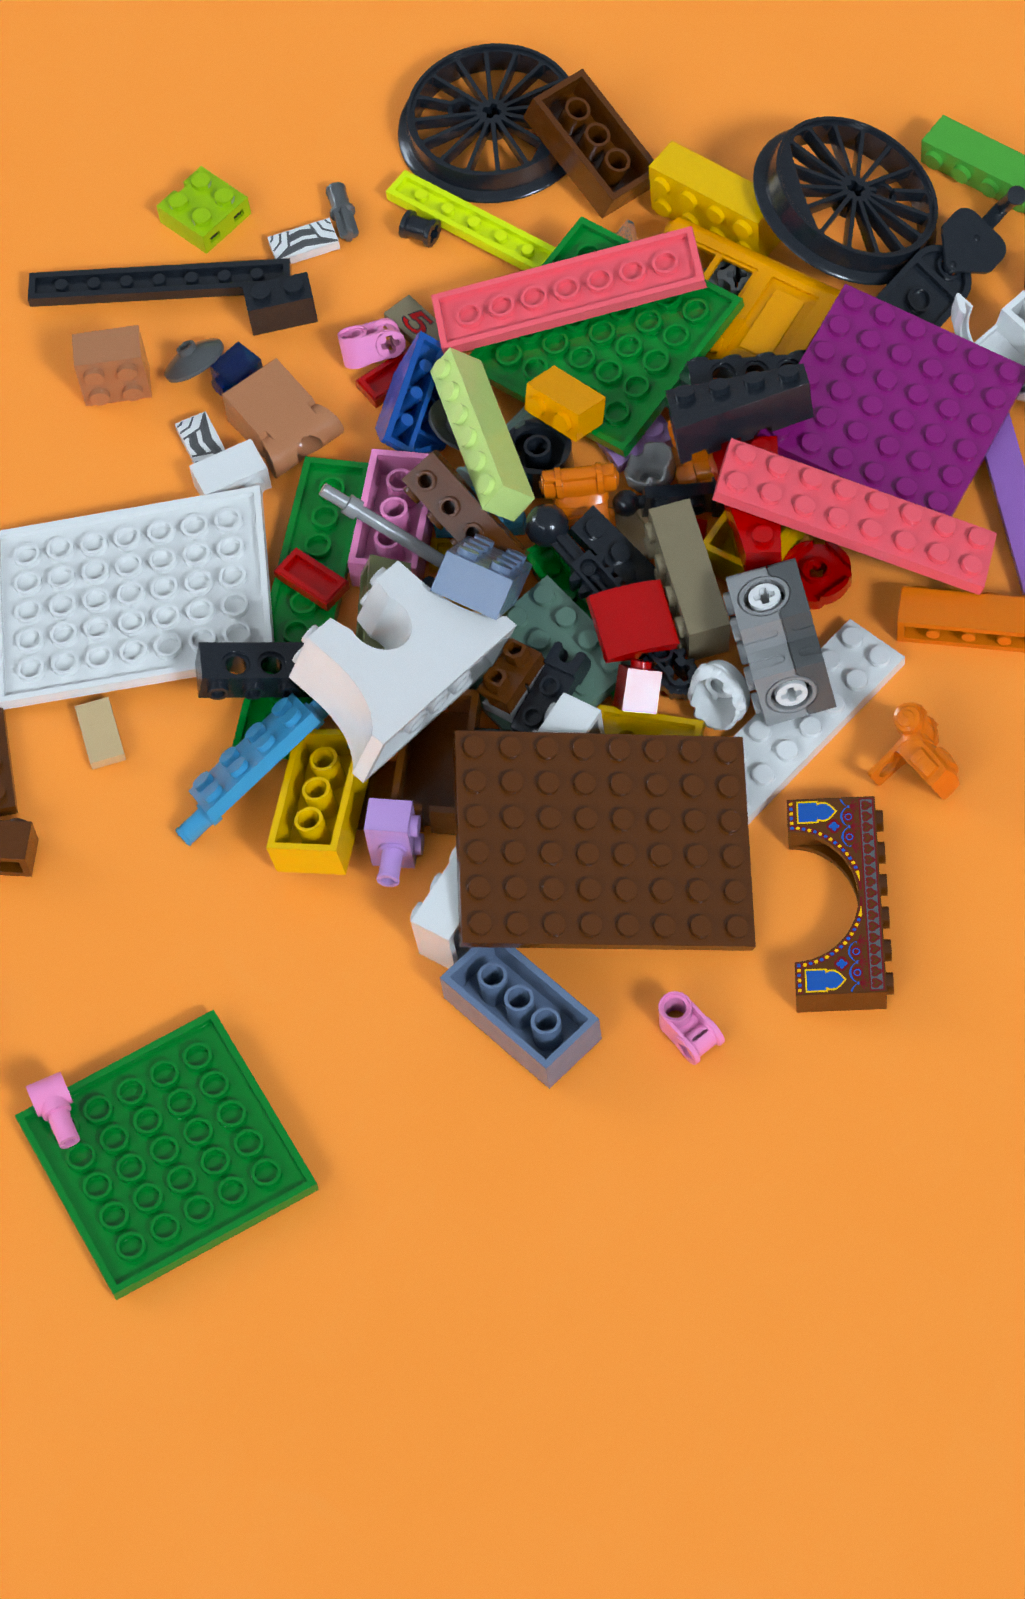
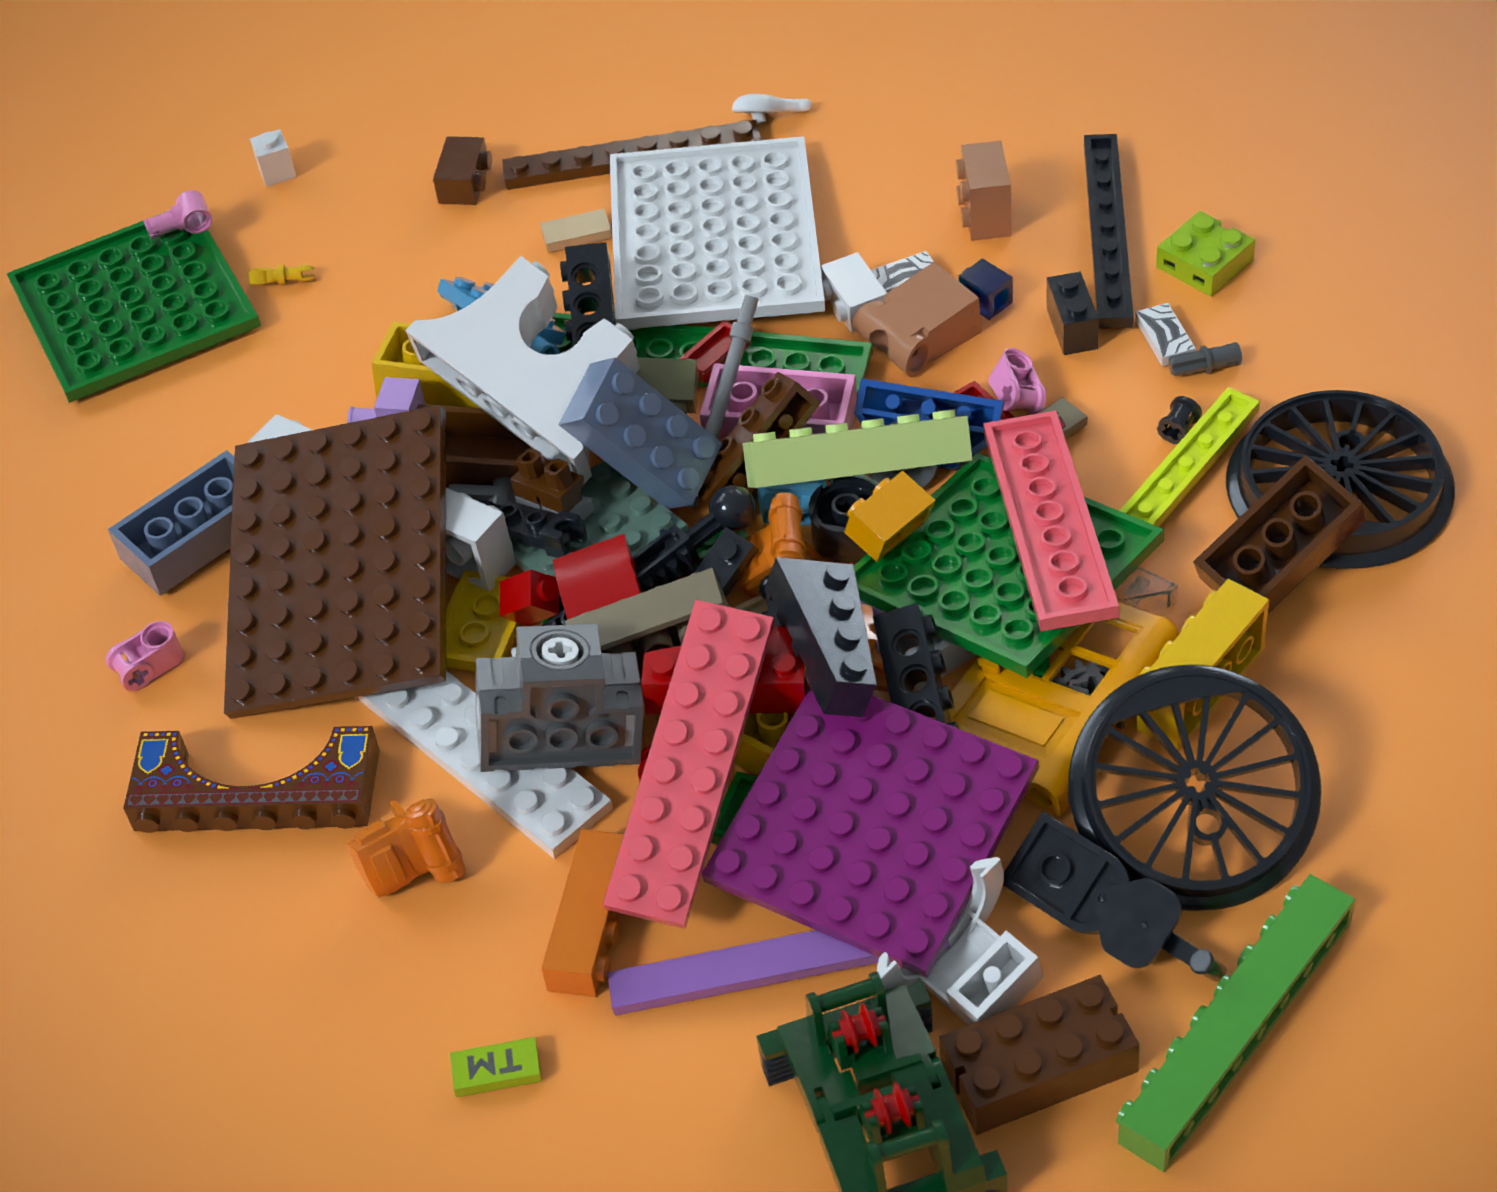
camera: 90 degrees right, 10 degrees down
(138, 1008) = (281, 274): none -> yellow piece
(193, 359) = (1002, 253): dark grey dish -> none

